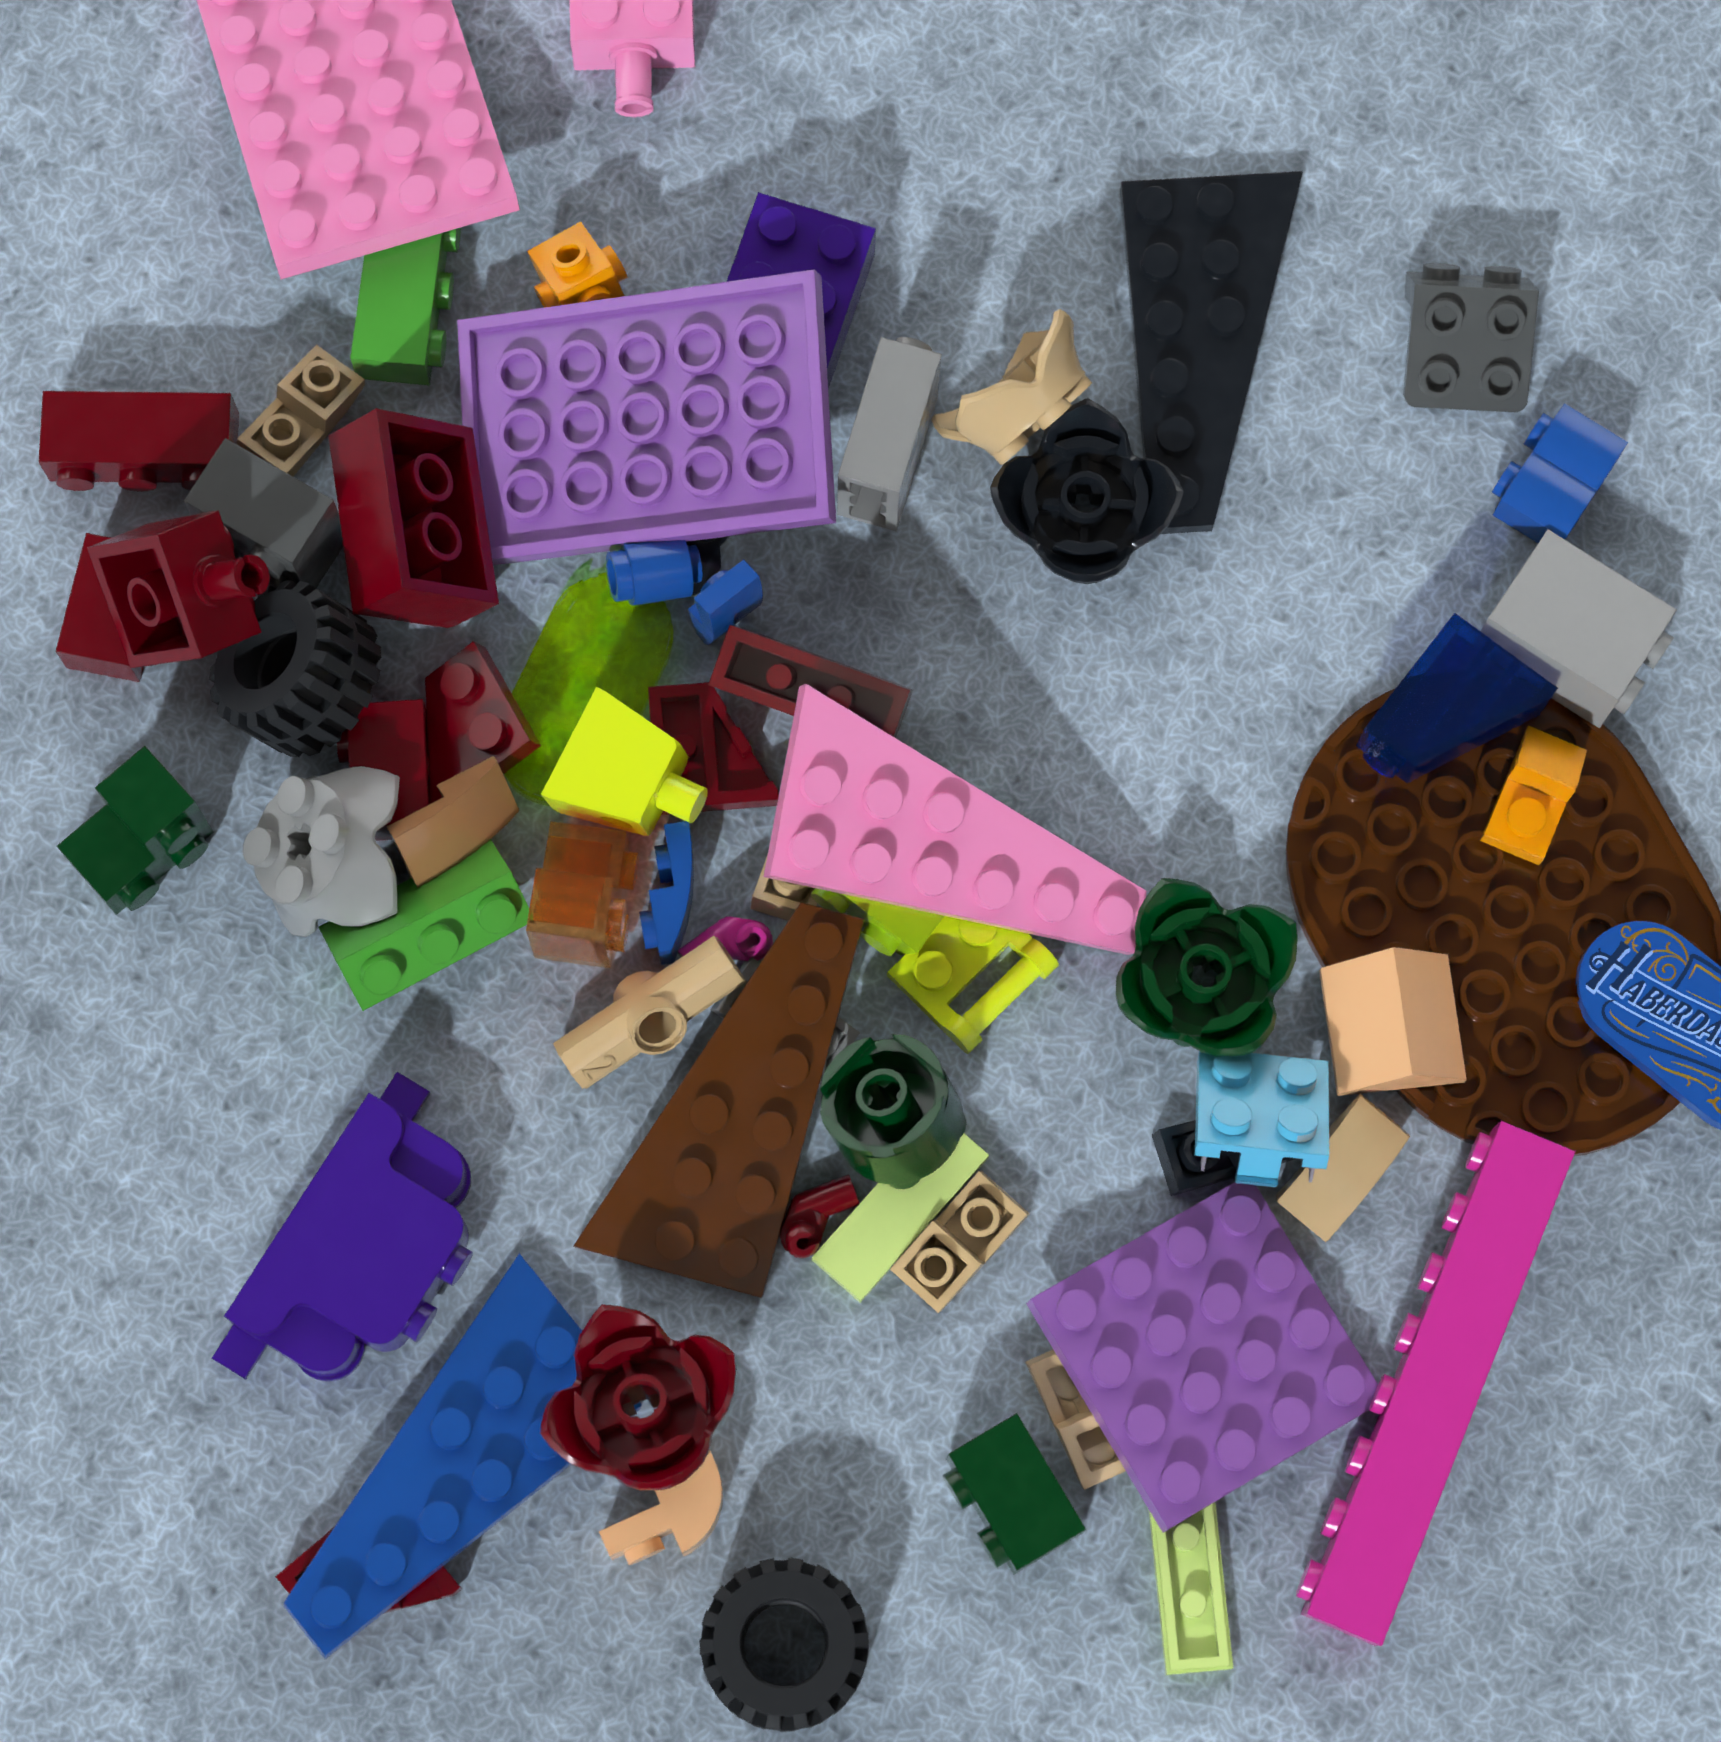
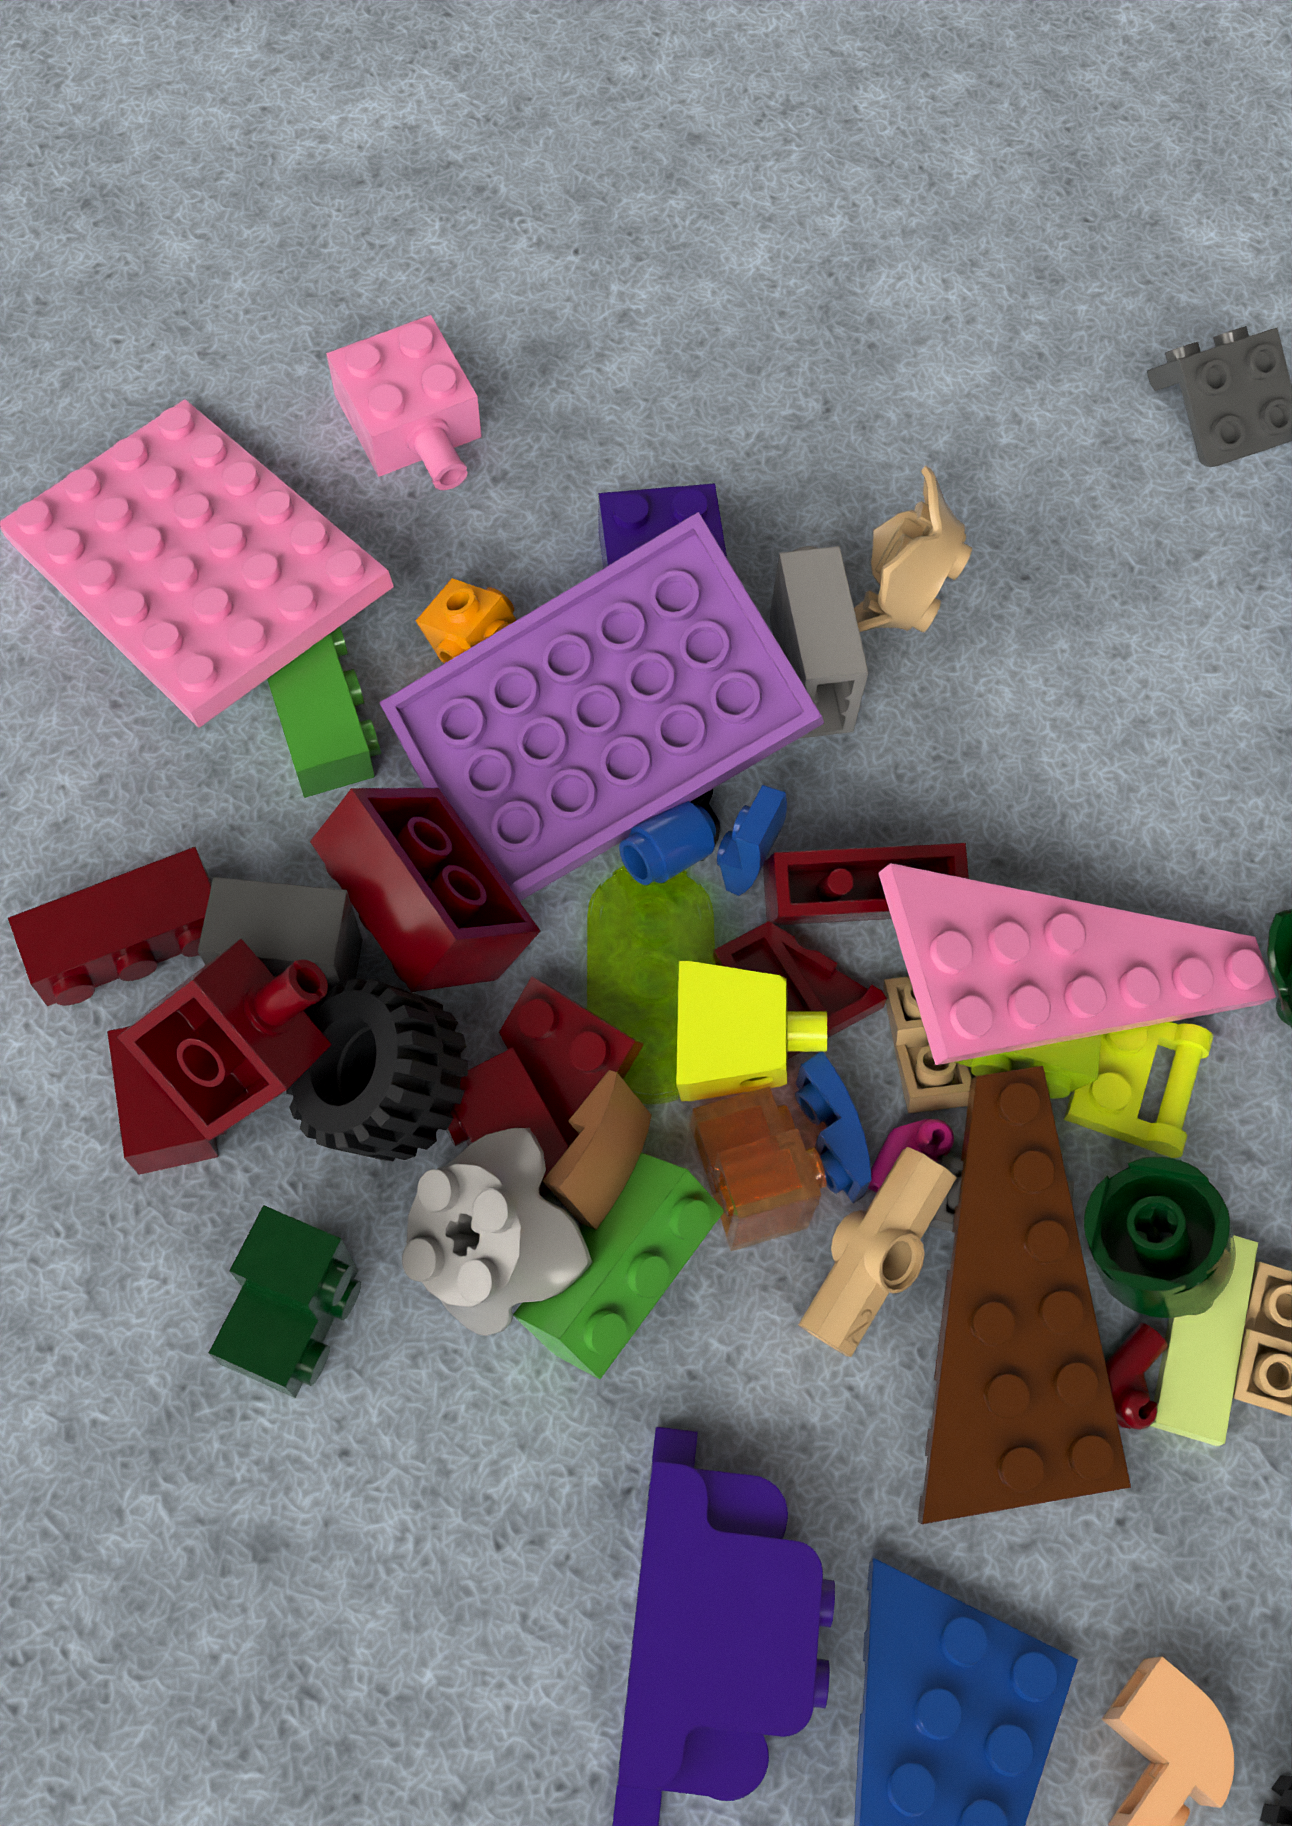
camera: 25 degrees left, 10 degrees down
(305, 411) = (271, 833): tan slope -> none
(629, 1360) = (1134, 1608): dark red brick -> none
(1091, 456) = (1009, 634): black brick -> none
(1199, 299) = (1003, 458): black wing -> none

